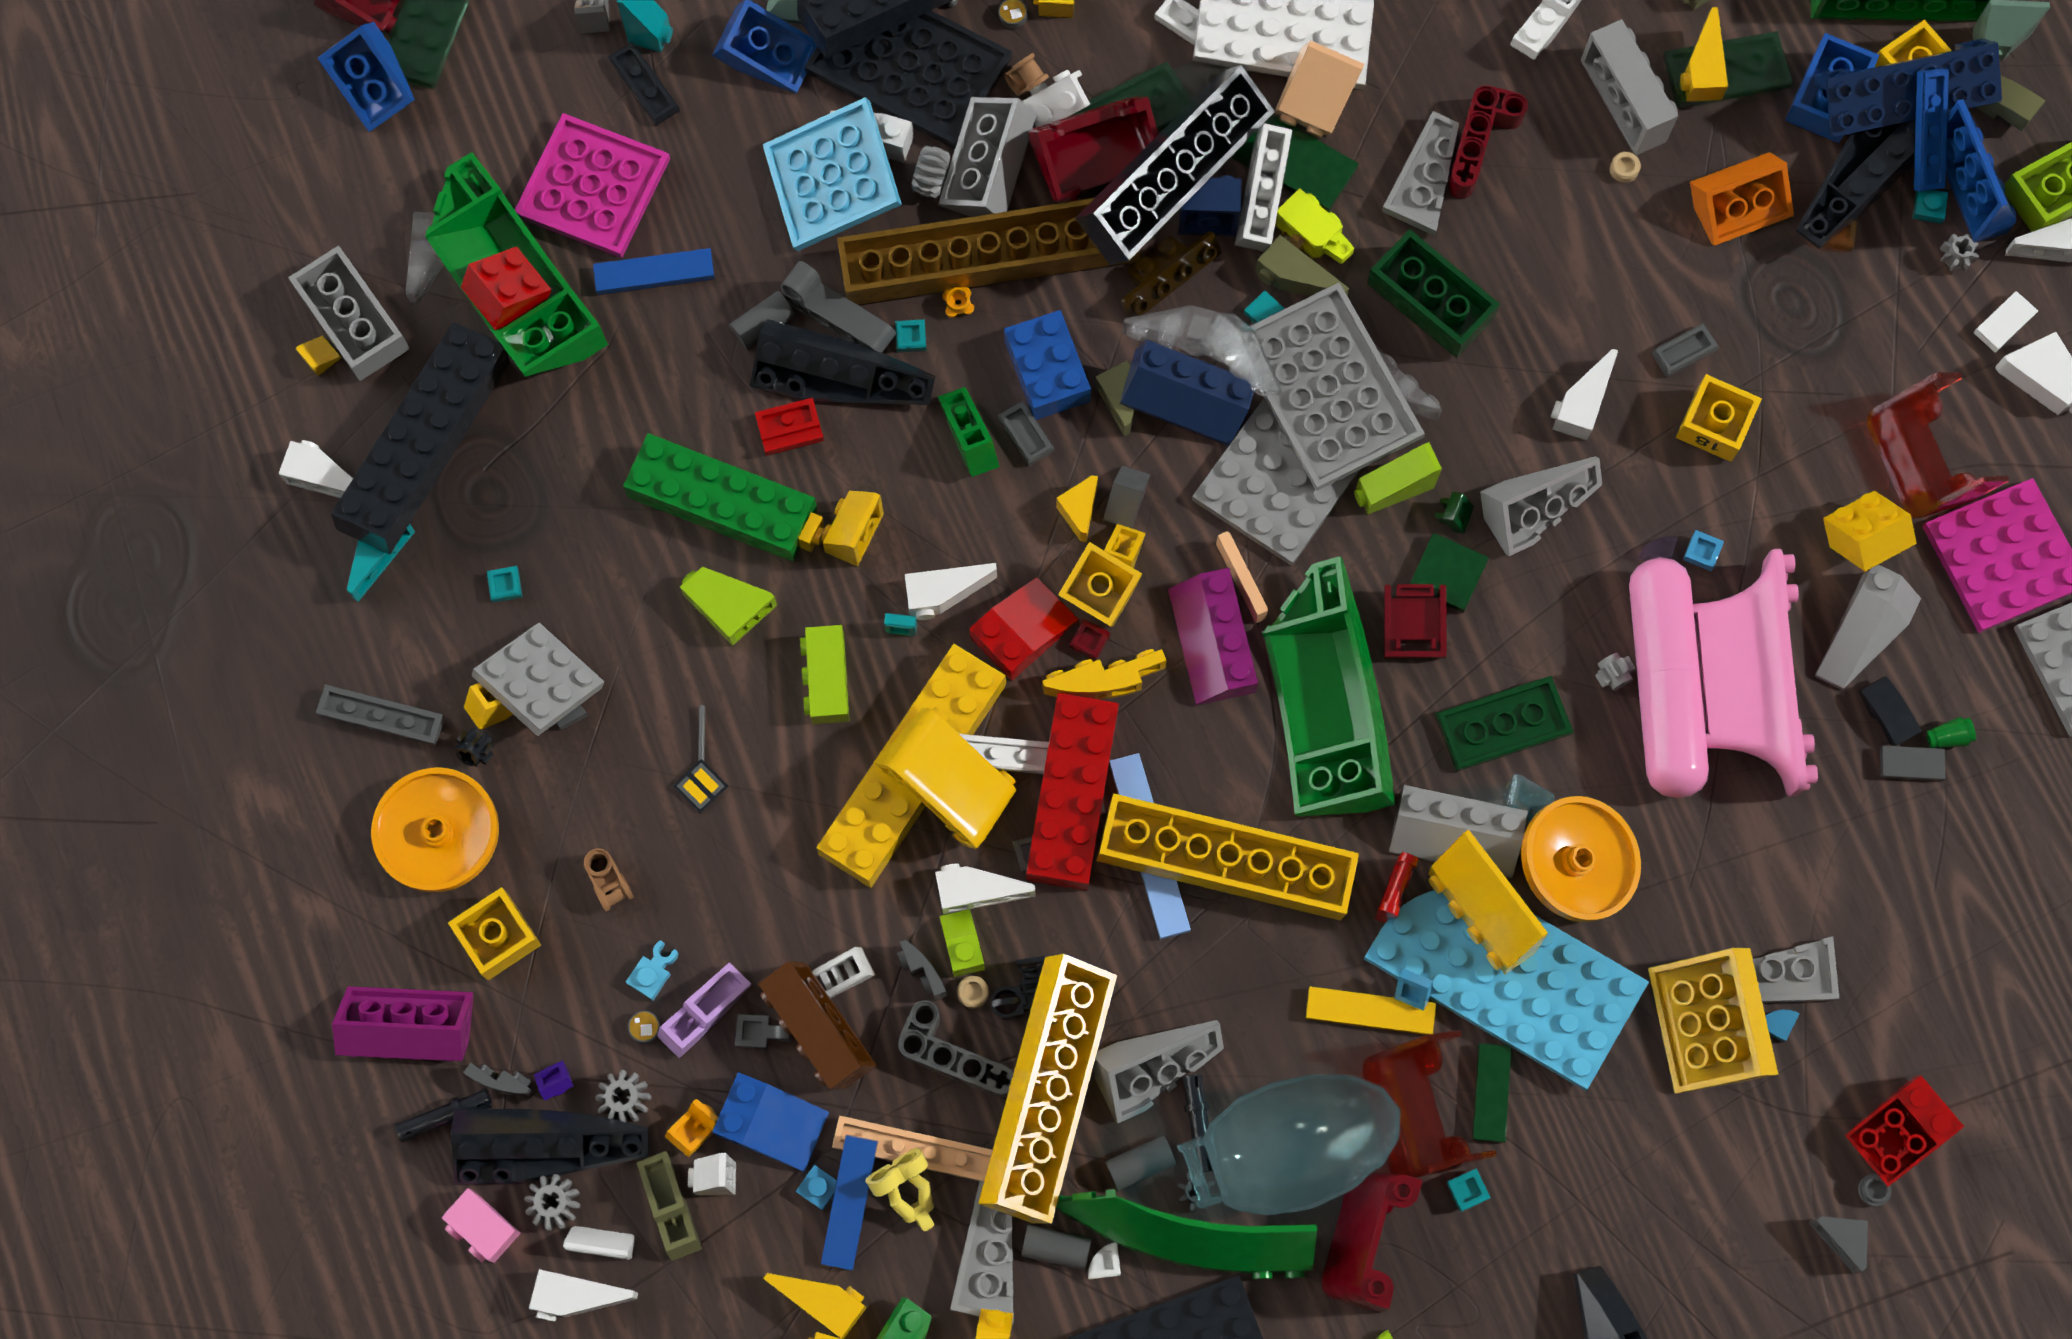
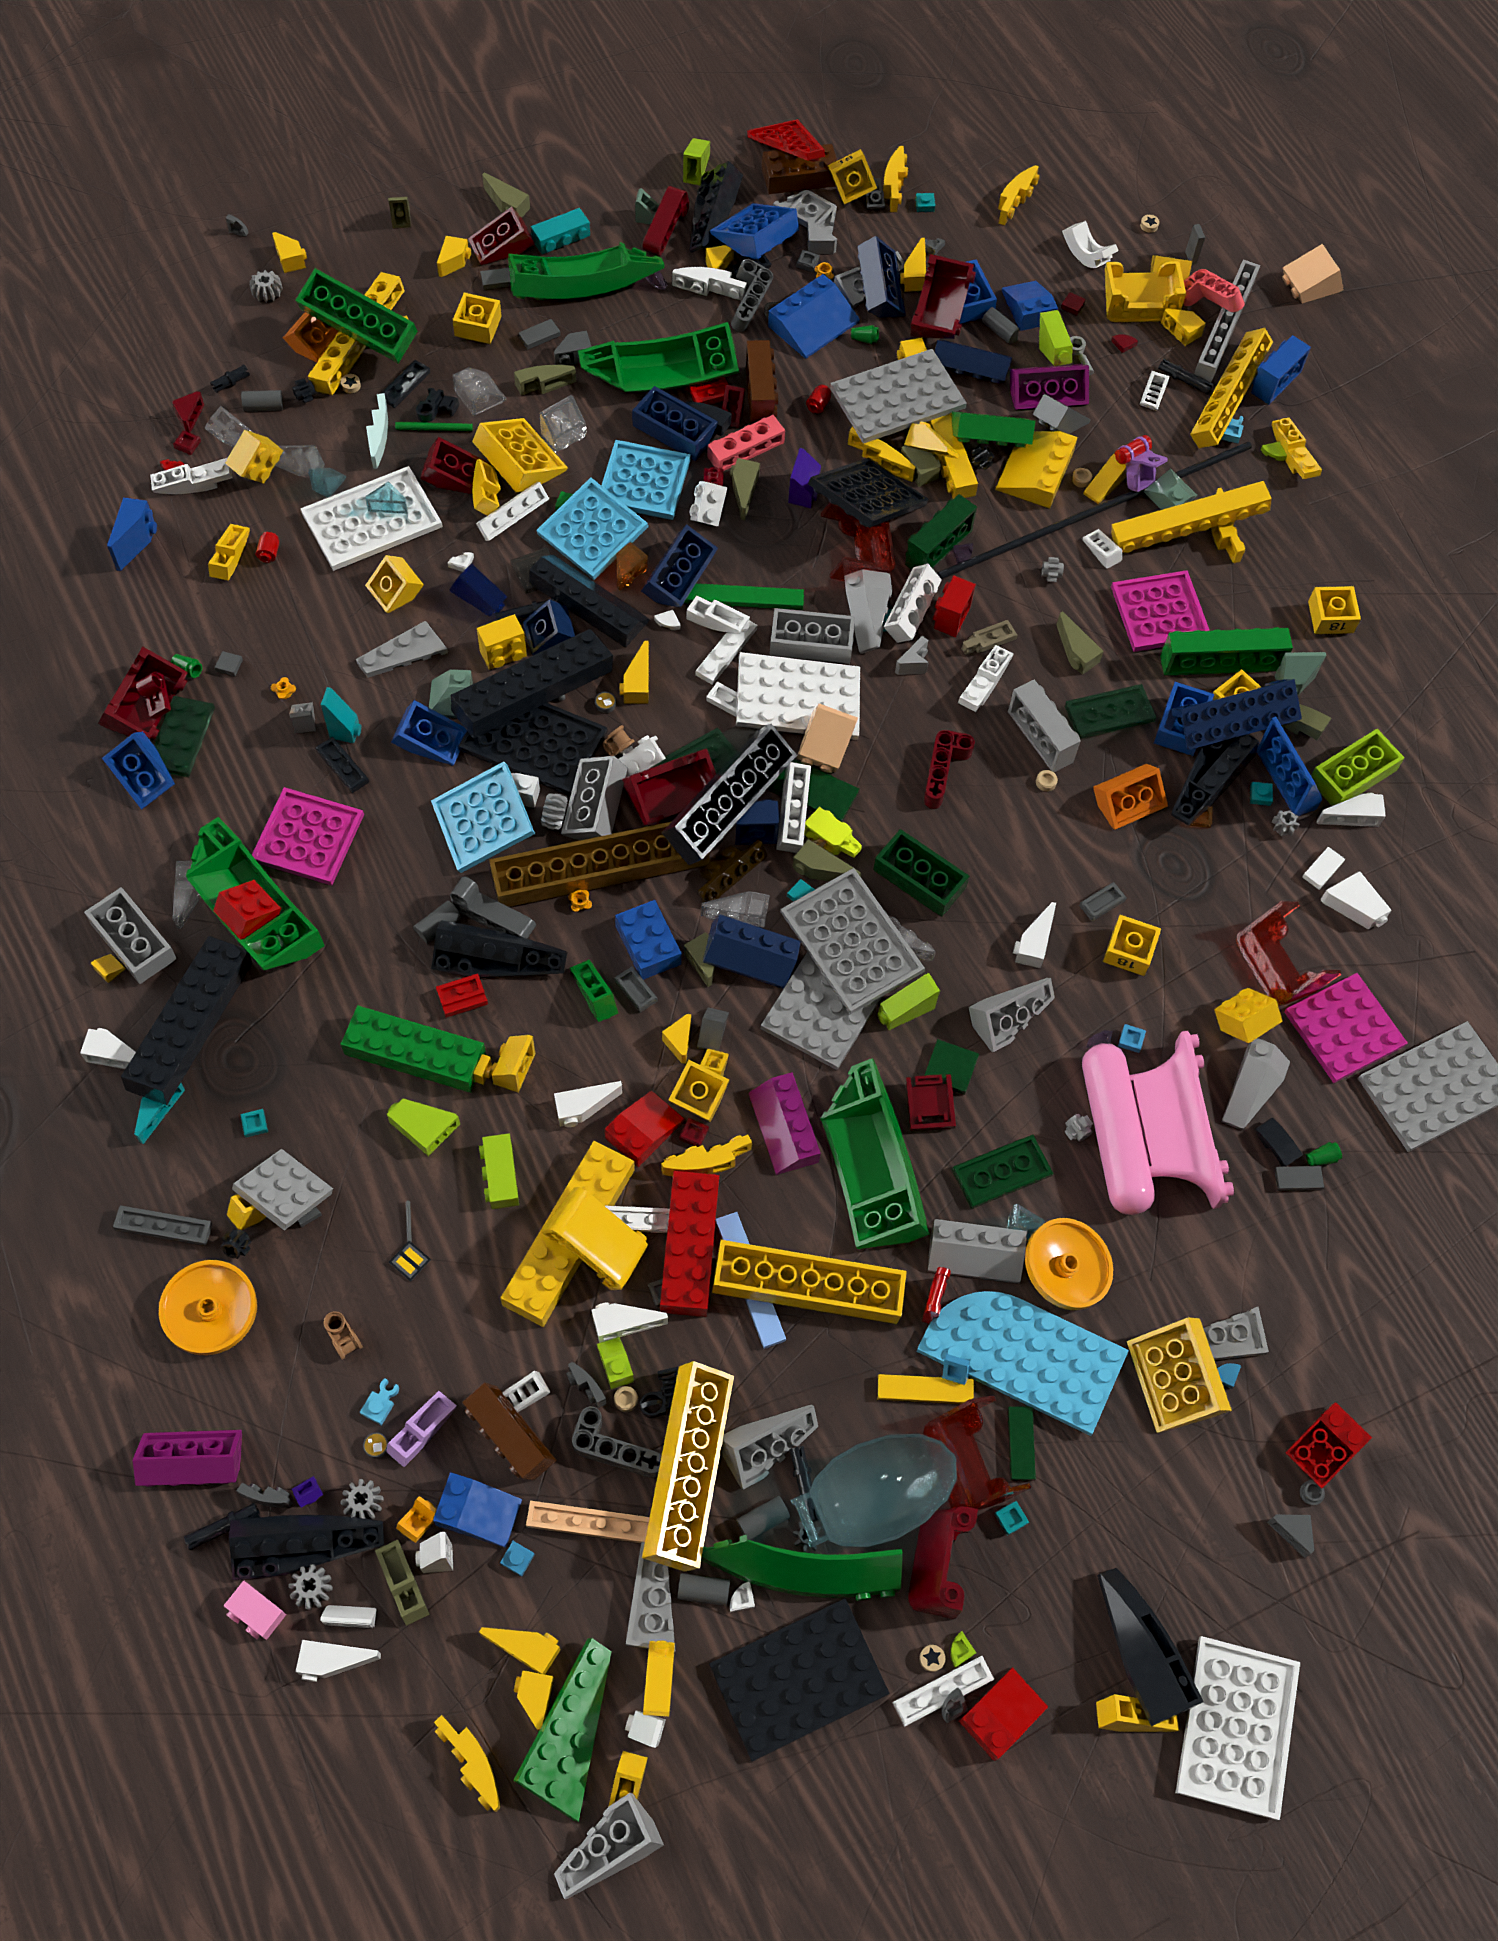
camera: 10 degrees left, 10 degrees down
(494, 934) = (257, 1382): yellow brick -> none
(653, 271) = (355, 893): blue tile -> none
(756, 1031) = (462, 1441): dark grey plate -> none
(849, 1202) = (542, 1567): blue tile -> none
(891, 1176) = (570, 1548): light yellow piece -> none
(900, 624) = (553, 1131): teal tile -> none
(910, 336) = (547, 926): teal tile -> none
(1239, 347) = (787, 917): clear slope -> none
(1242, 576) = (802, 1079): light nougat tile -> none
(1422, 182) = (906, 796): light grey wing -> none
(1457, 512) = (953, 1023): dark green tile -> none
(1486, 903) = (1004, 1299): yellow slope -> none
(1706, 71) = (1096, 711): yellow slope -> none
(1931, 129) = (1256, 740): blue tile -> none

